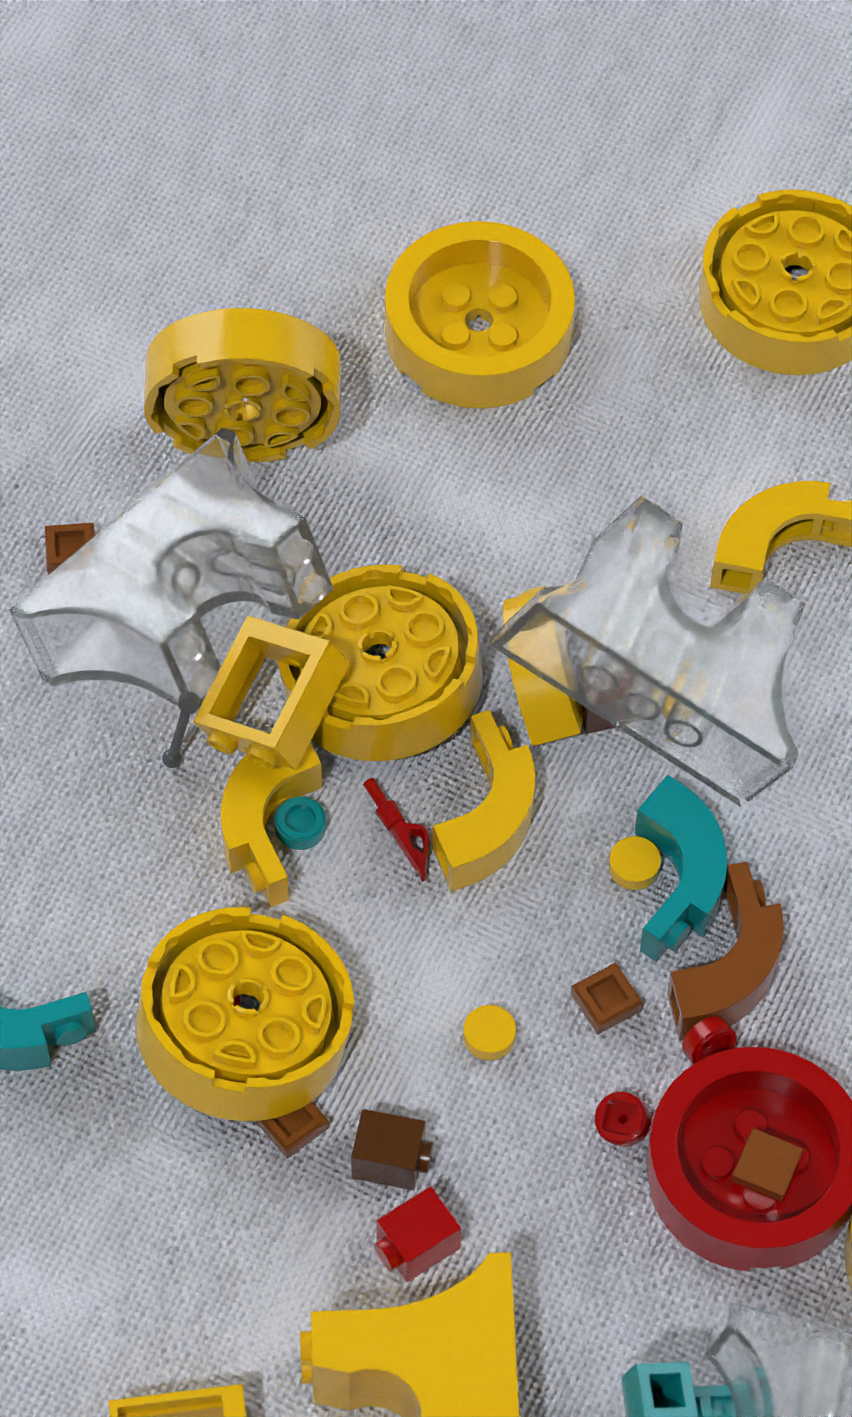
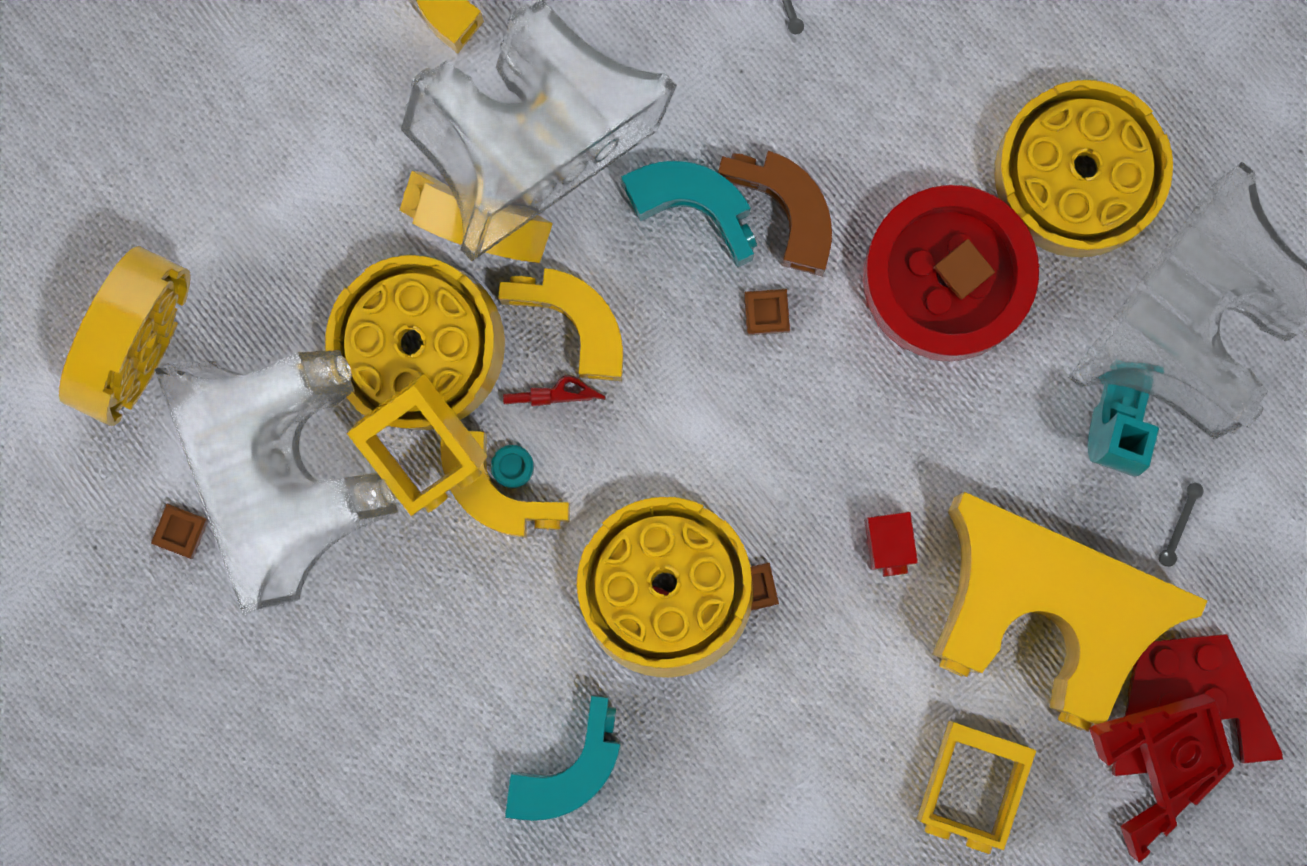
camera: 60 degrees left, 25 degrees up
(188, 704) = (395, 514): dark grey hinge -> none
(390, 1150) = (817, 529): reddish brown brick -> none
(488, 273) = (97, 71): yellow brick -> none
(489, 1032) = (753, 411): yellow tile -> none
(622, 1119) = (870, 350): red tile -> none
(634, 863) = (668, 235): yellow tile -> none
(708, 1038) = (843, 258): red tile -> none

